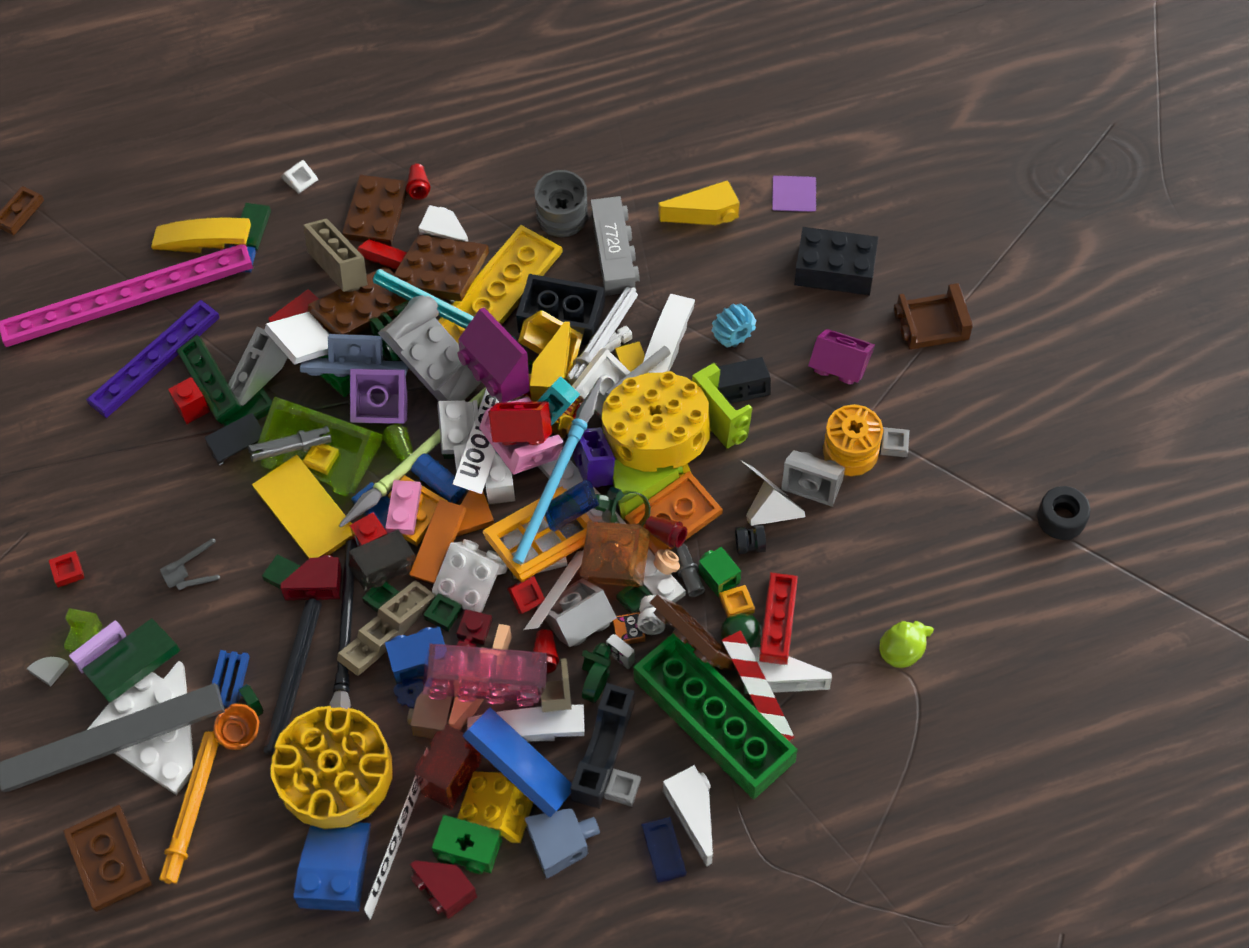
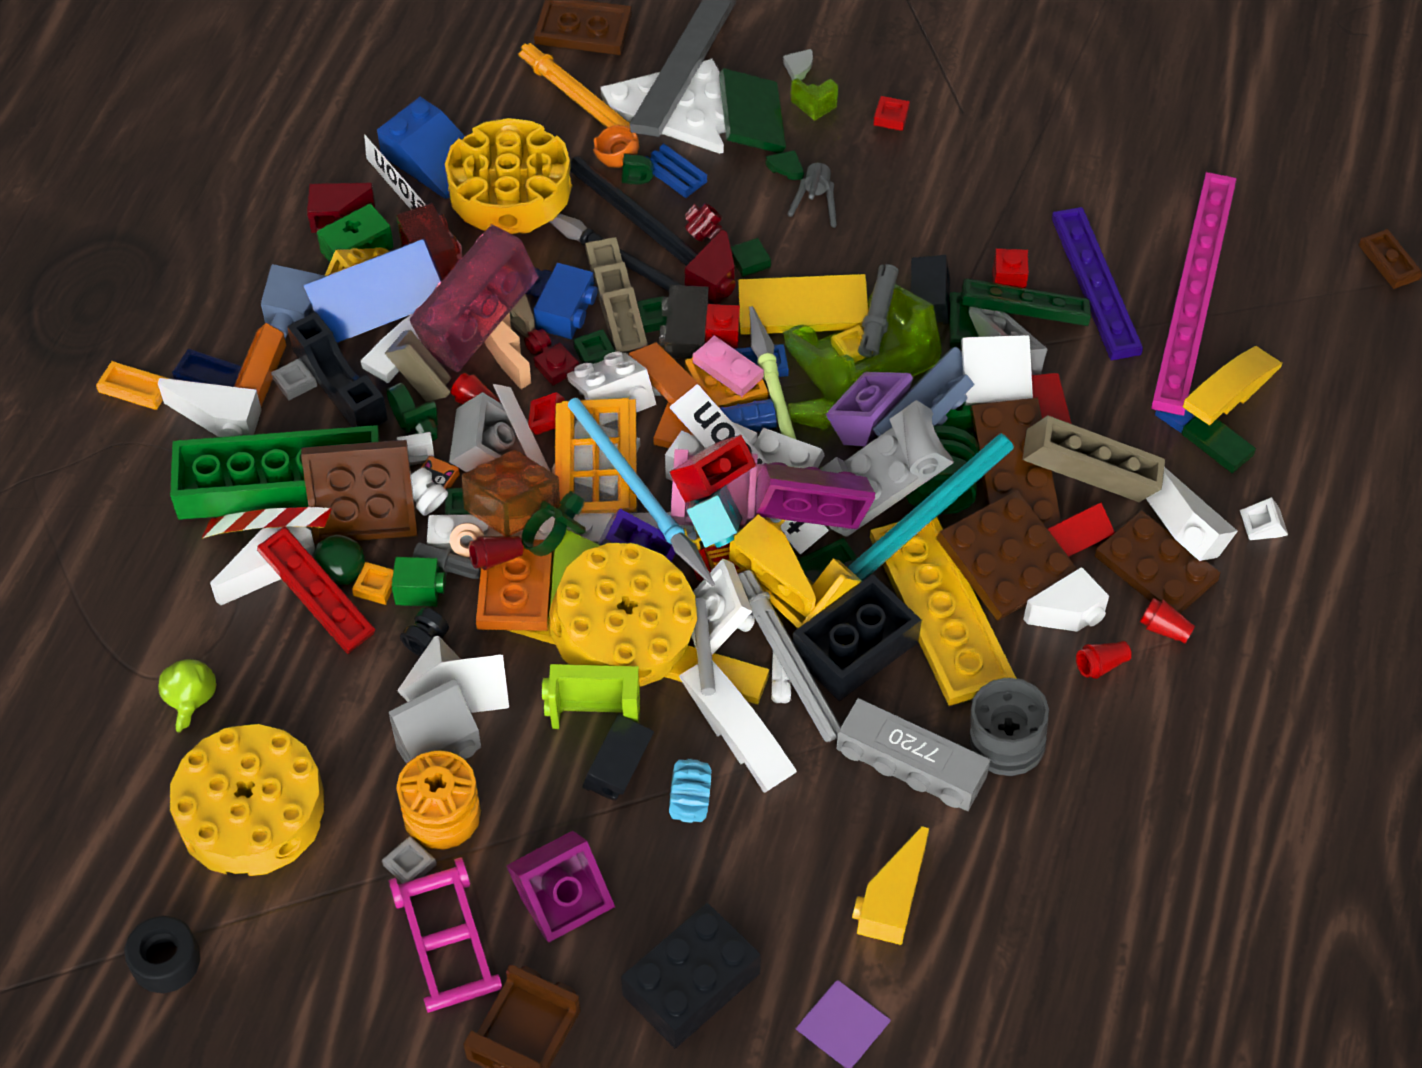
camera: 125 degrees right, 5 degrees down
(97, 645) = (787, 98): lavender tile -> none
(169, 608) = (786, 164): none -> dark green tile
(275, 614) = (703, 222): none -> dark red gear
(336, 196) = (1191, 519): none -> white slope
(471, 197) = (1098, 659): none -> red cone
(571, 505) = (591, 477): clear blue tile -> none
(630, 810) = (262, 360): none -> orange piece
(716, 894) = (131, 385): none -> light orange tile
(918, 427) = (459, 878): none -> dark pink piece
(941, 543) = (247, 800): none -> yellow brick

